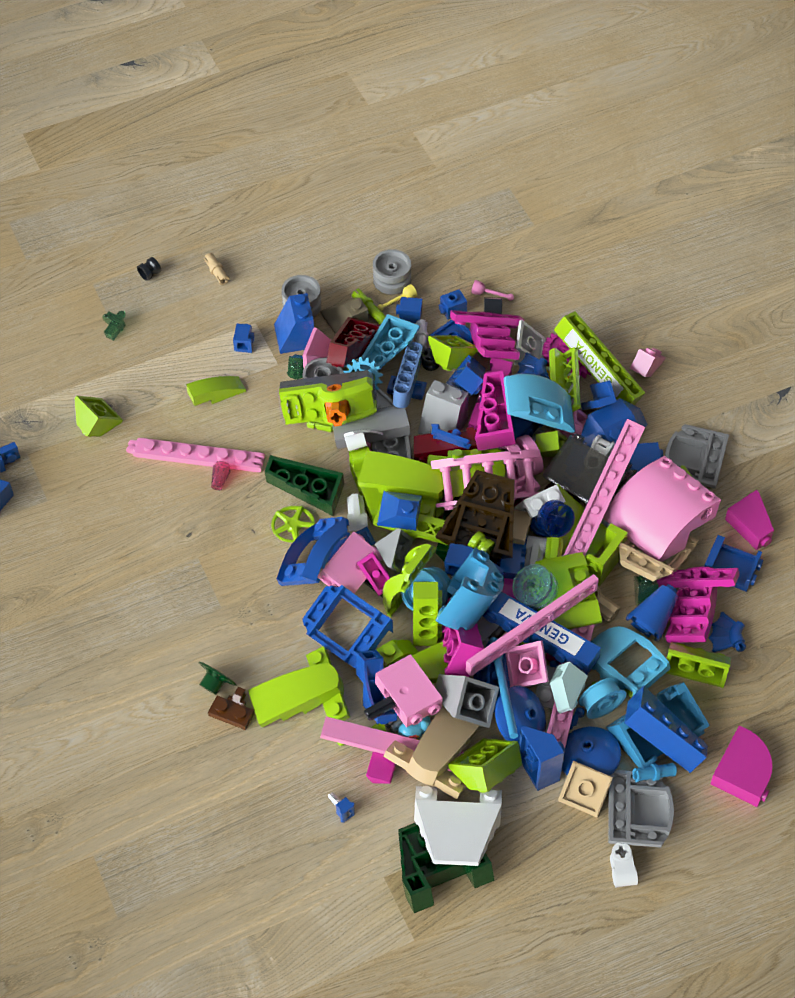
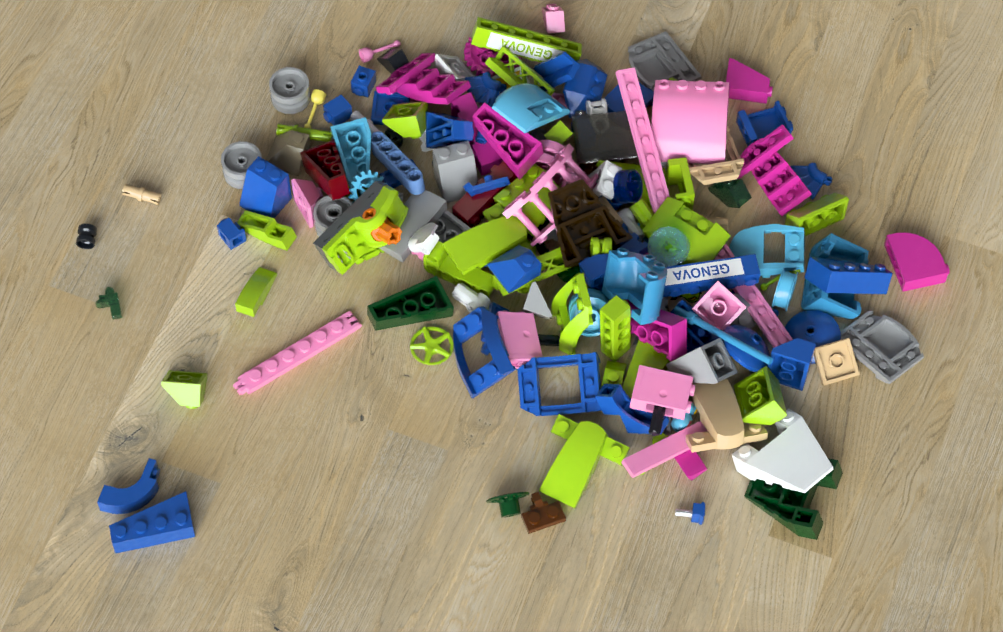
camera: 45 degrees left, 5 degrees up
(219, 475) = (336, 353): clear pink cone -> none
(270, 355) = (267, 230): none -> lime slope
(295, 366) = (298, 222): clear green piece -> none
(374, 571) = (542, 329): dark pink slope -> none
(531, 625) = (698, 275): bright pink tile -> none
(566, 686) = (759, 300): light aqua slope -> none
(623, 869) = (911, 393): white piece -> none
(654, 612) = (757, 201): blue cone -> none
(654, 772) = (867, 312): dark azure pin -> none

